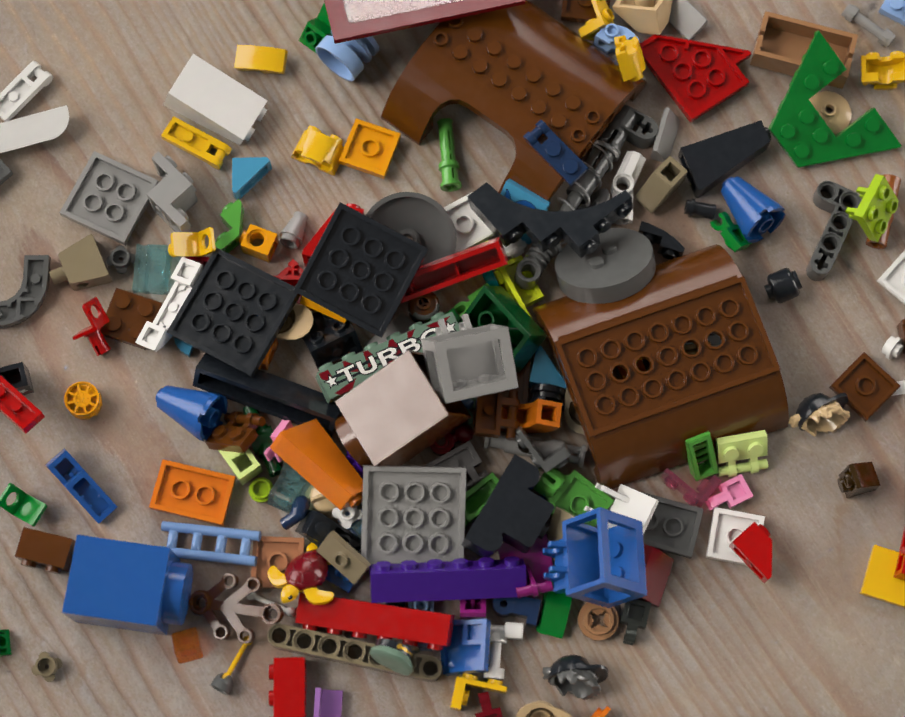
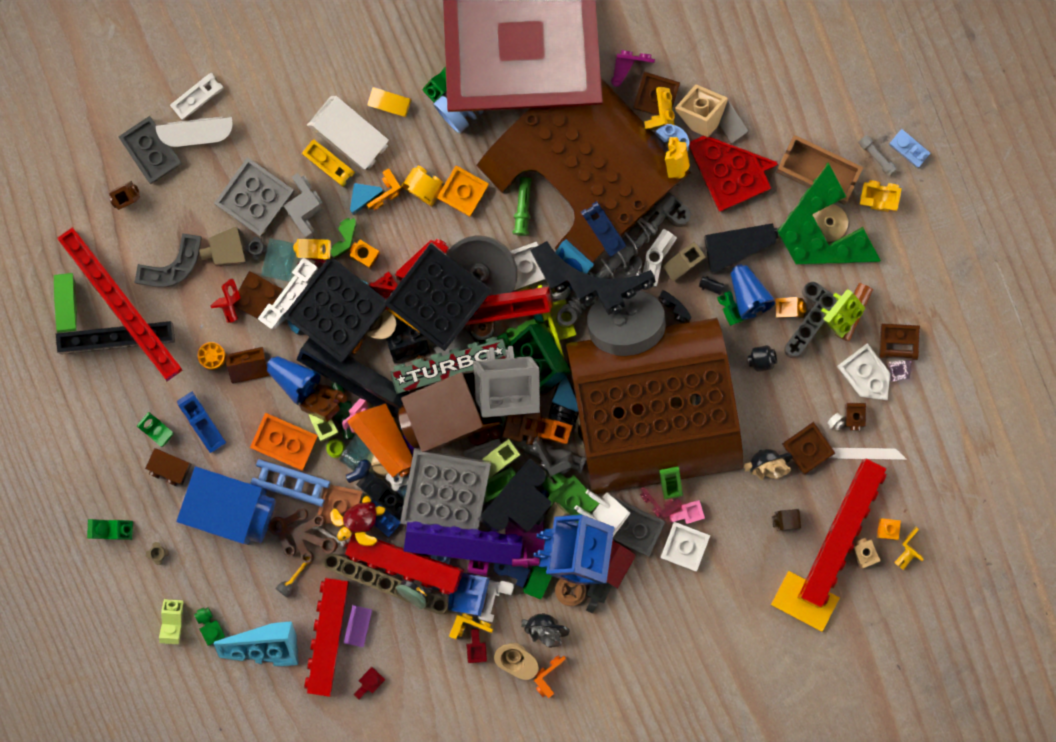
camera: 10 degrees right, 10 degrees up
(130, 405) = (246, 365): none -> reddish brown panel
(187, 645) = (263, 555): clear orange slope -> none
(283, 163) = (389, 181): none -> light orange bracket
(293, 232) = (393, 248): light grey cone -> none
(343, 557) = (388, 513): dark tan plate -> none
(479, 459) = (501, 457): none -> yellowish green slope
(665, 136) = (696, 221): light grey slope -> none
(741, 447) = (702, 481): yellowish green plate -> none
(755, 550) = (696, 560): red slope -> none
(803, 219) = (790, 307): none -> light orange bracket

